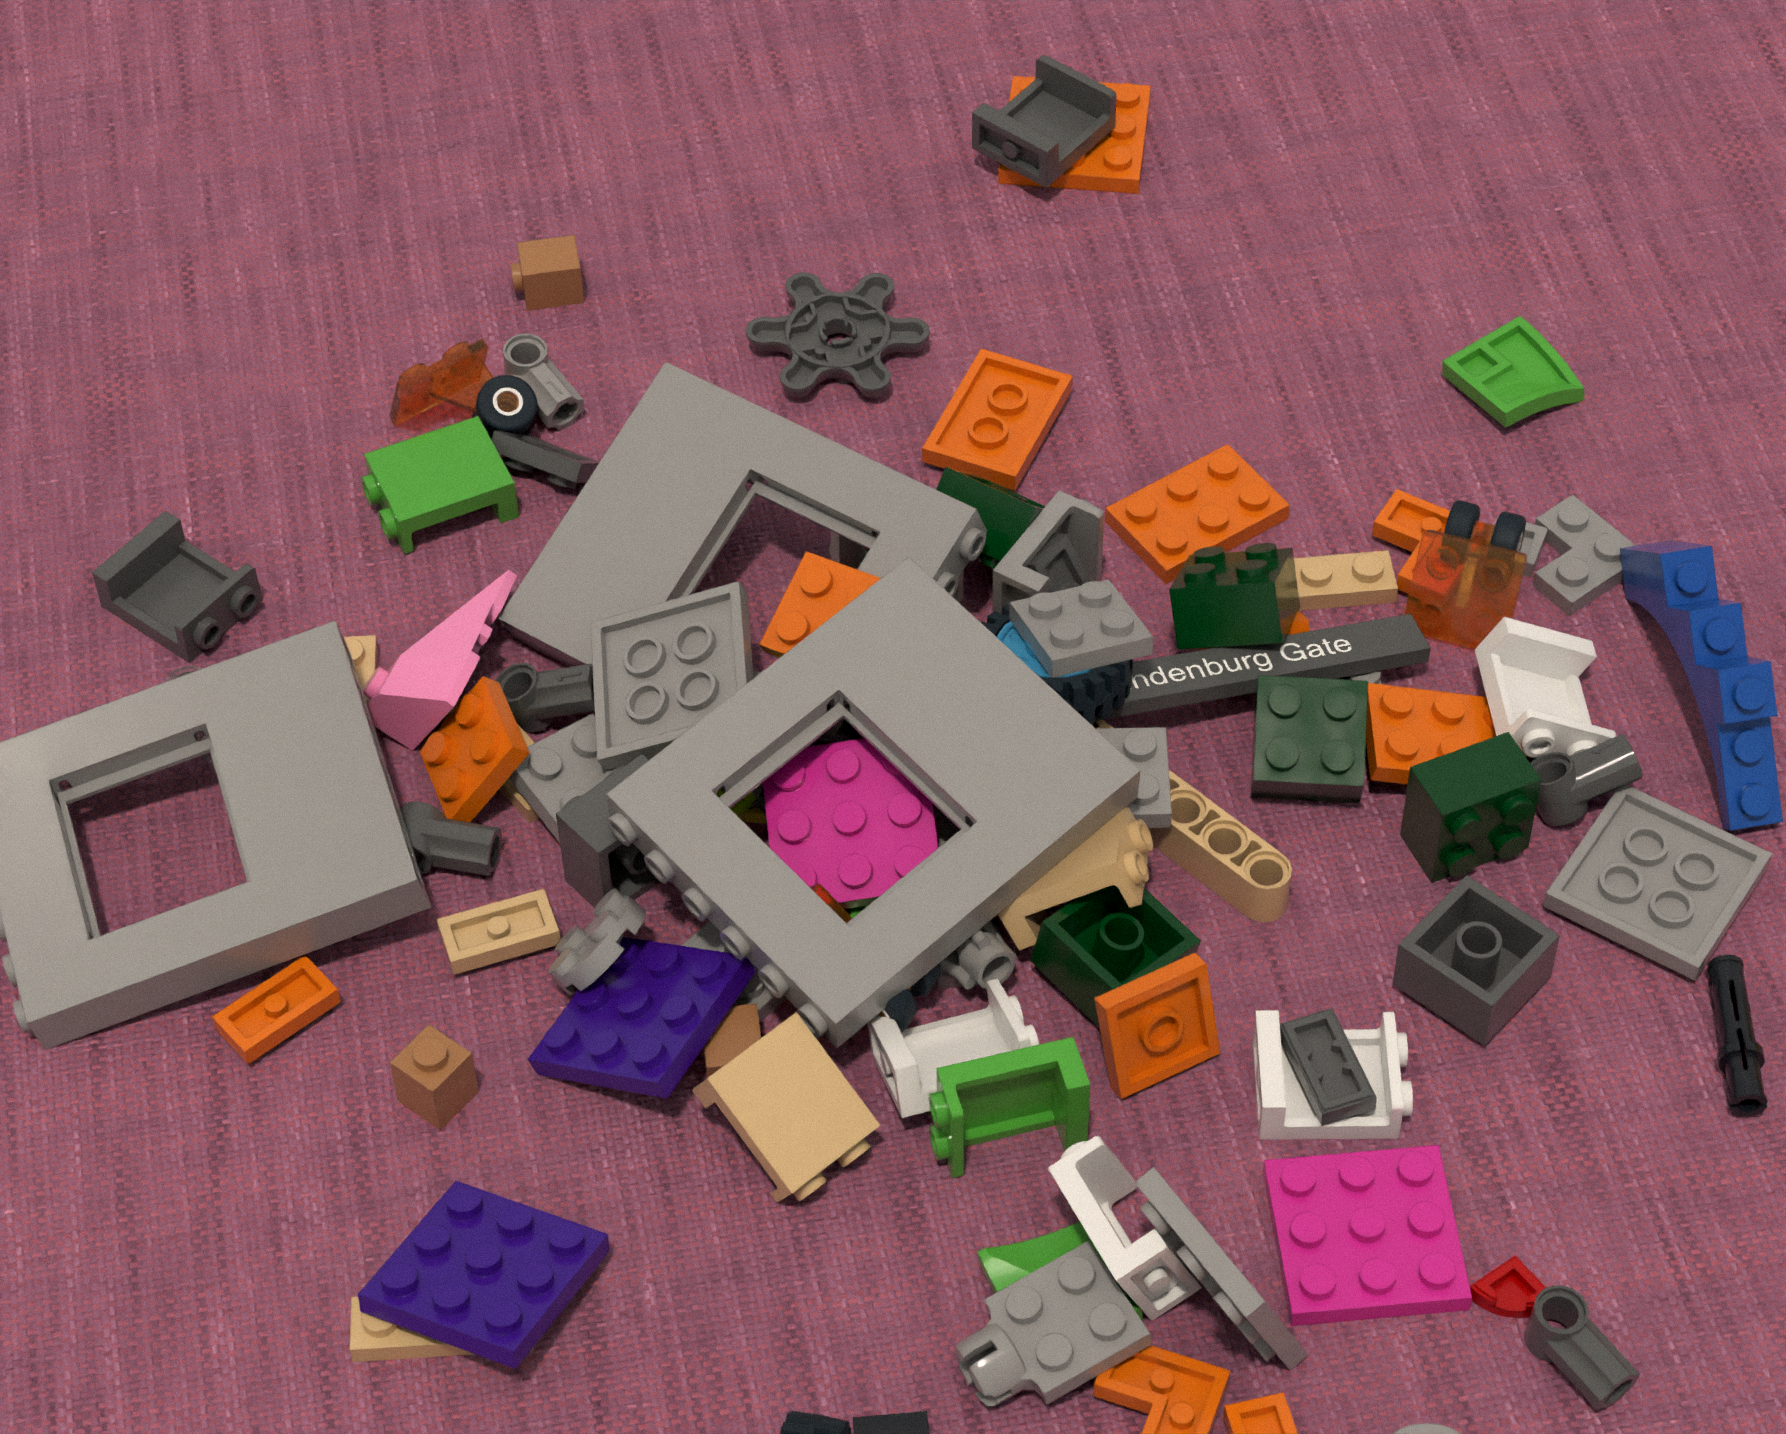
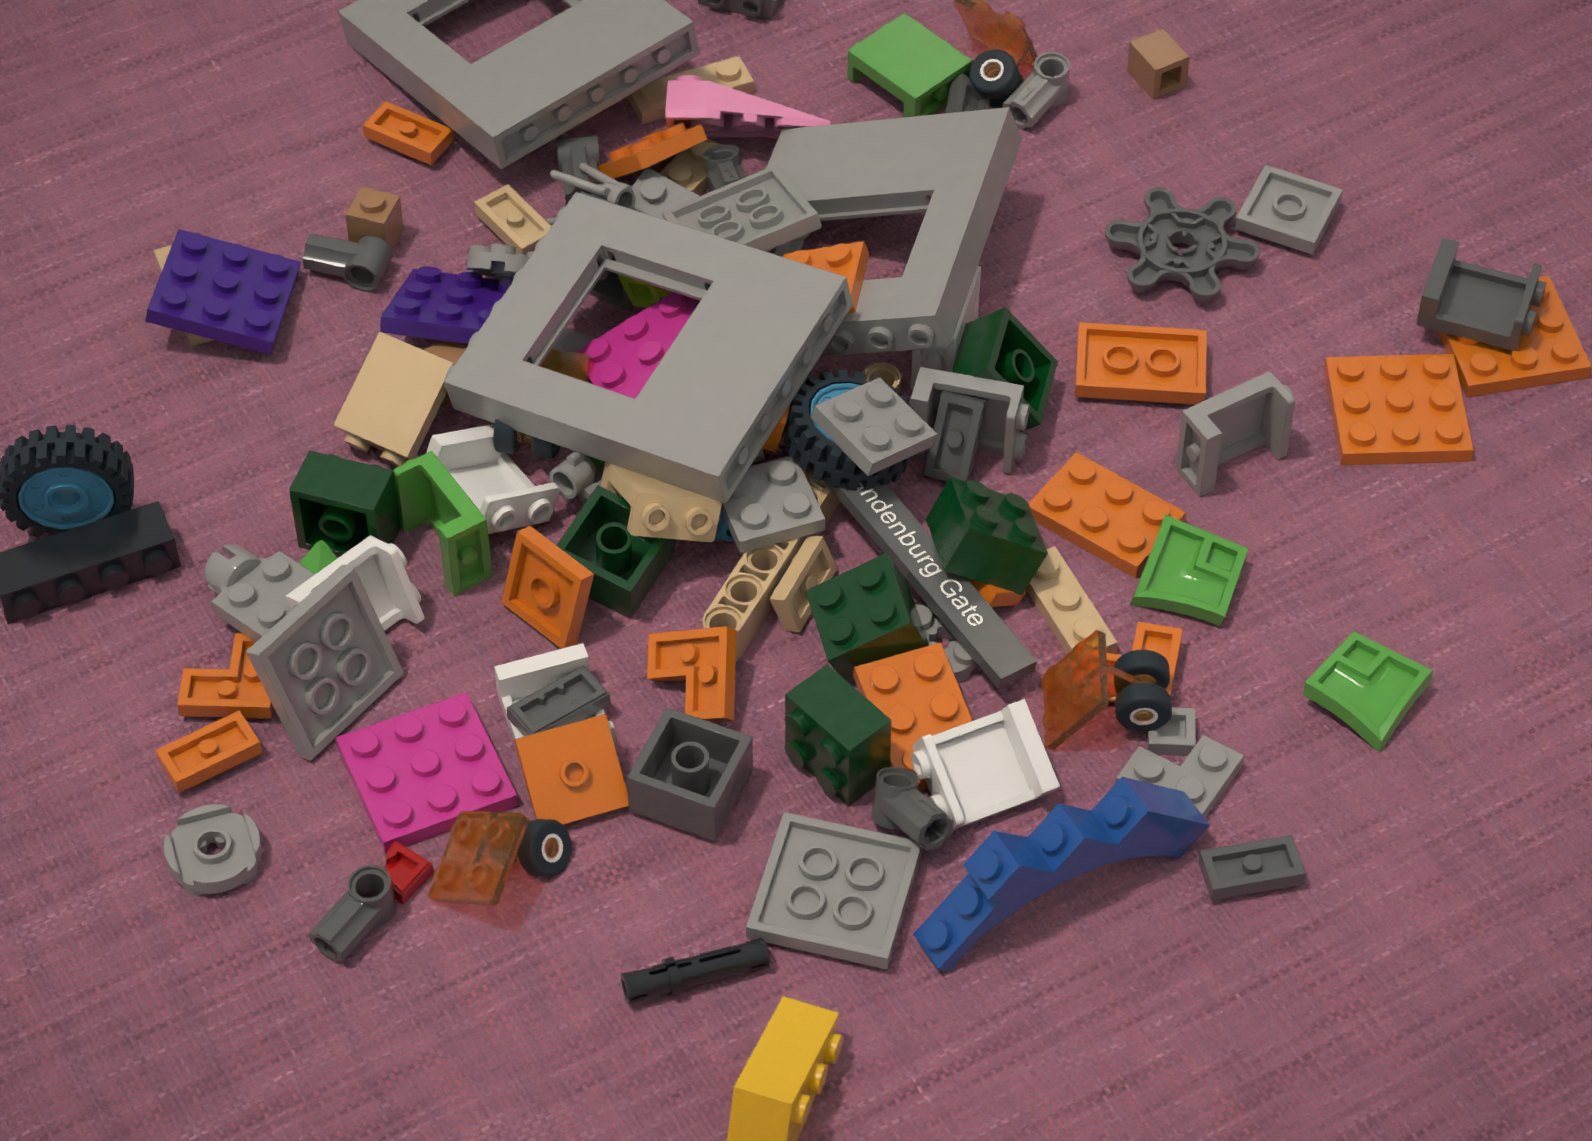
camera: 70 degrees right, 0 degrees up
(488, 1113) = (359, 263): none -> dark grey piece
(547, 799) = (610, 190): none -> light grey plant
(825, 236) = (1288, 209): none -> light grey plate
(947, 1205) = (343, 503): none -> dark green brick
(1140, 245) = (1397, 409): none -> orange plate
(1158, 383) = (1233, 424): none -> light grey panel
(1218, 789) = (808, 568): none -> tan plate
(1315, 464) = (1190, 572): none -> bright green plate
(1316, 902) = (707, 664): none -> orange plate
(1437, 1074) = (572, 771): none -> orange plate
(1540, 1187) = (486, 848): none -> clear orange plate
(1721, 522) = (1251, 867): none -> dark grey plate

